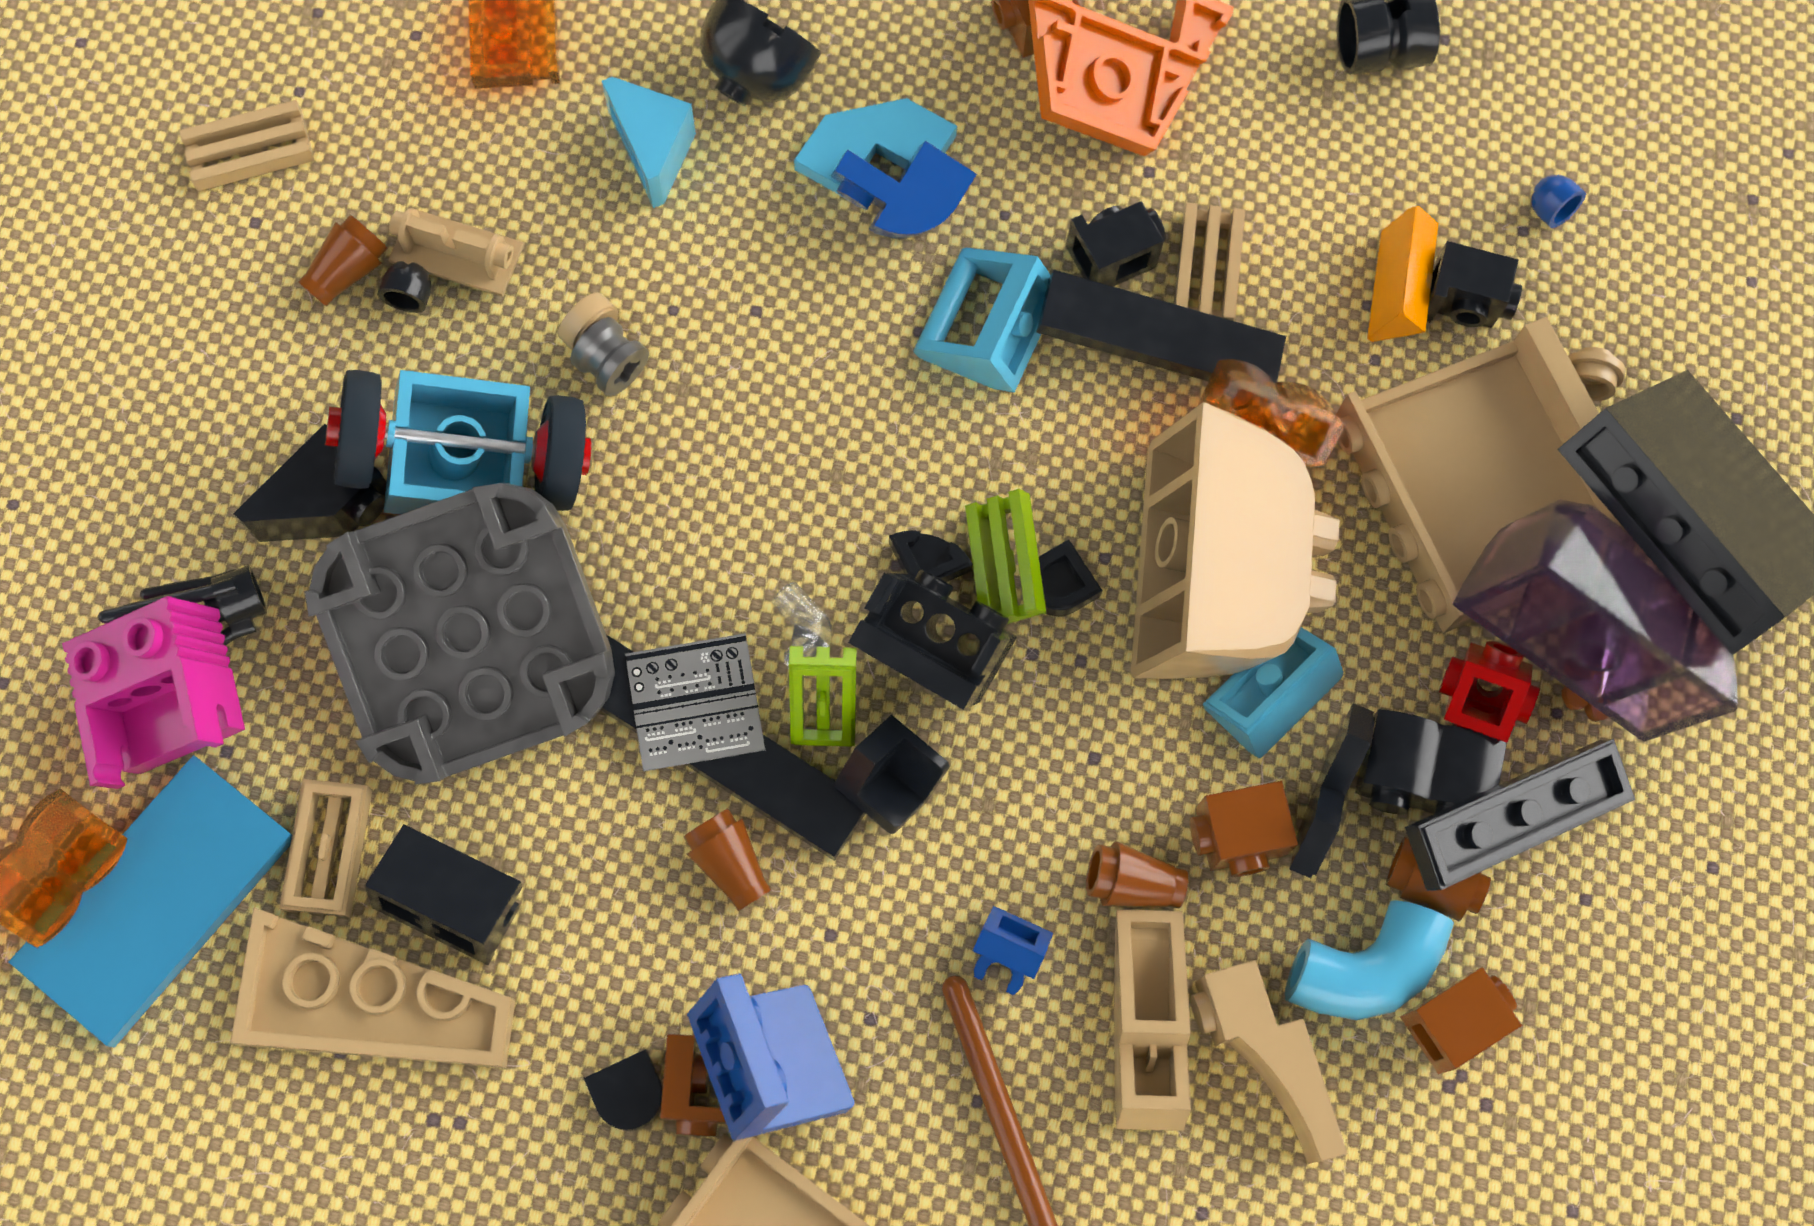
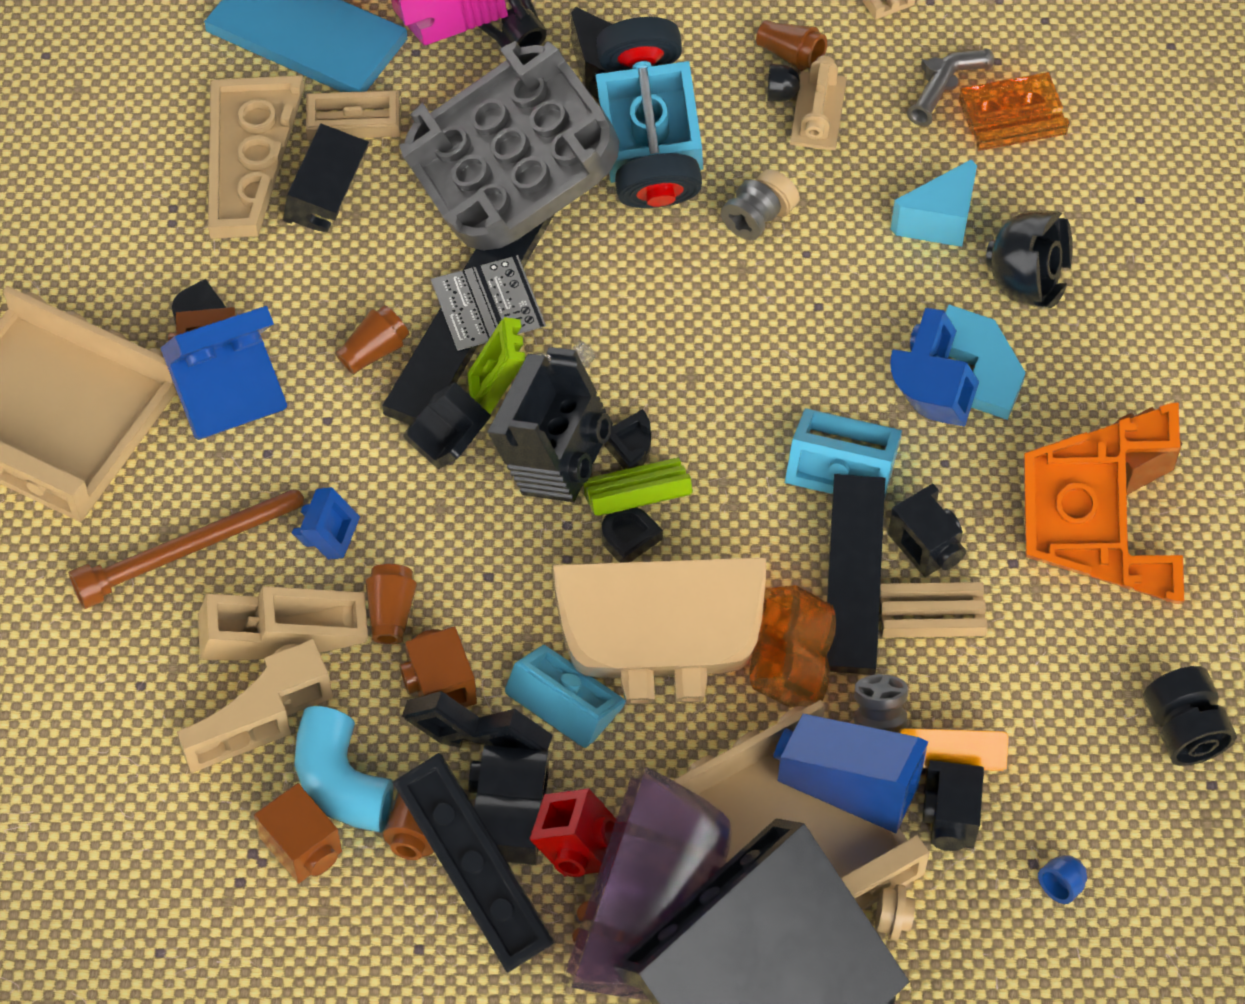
camera: 85 degrees right, 15 degrees down
(427, 100) = (941, 78): none -> flat silver piece
(1335, 323) = (881, 702): none -> flat silver wheel
(1449, 368) = (853, 767): none -> blue slope

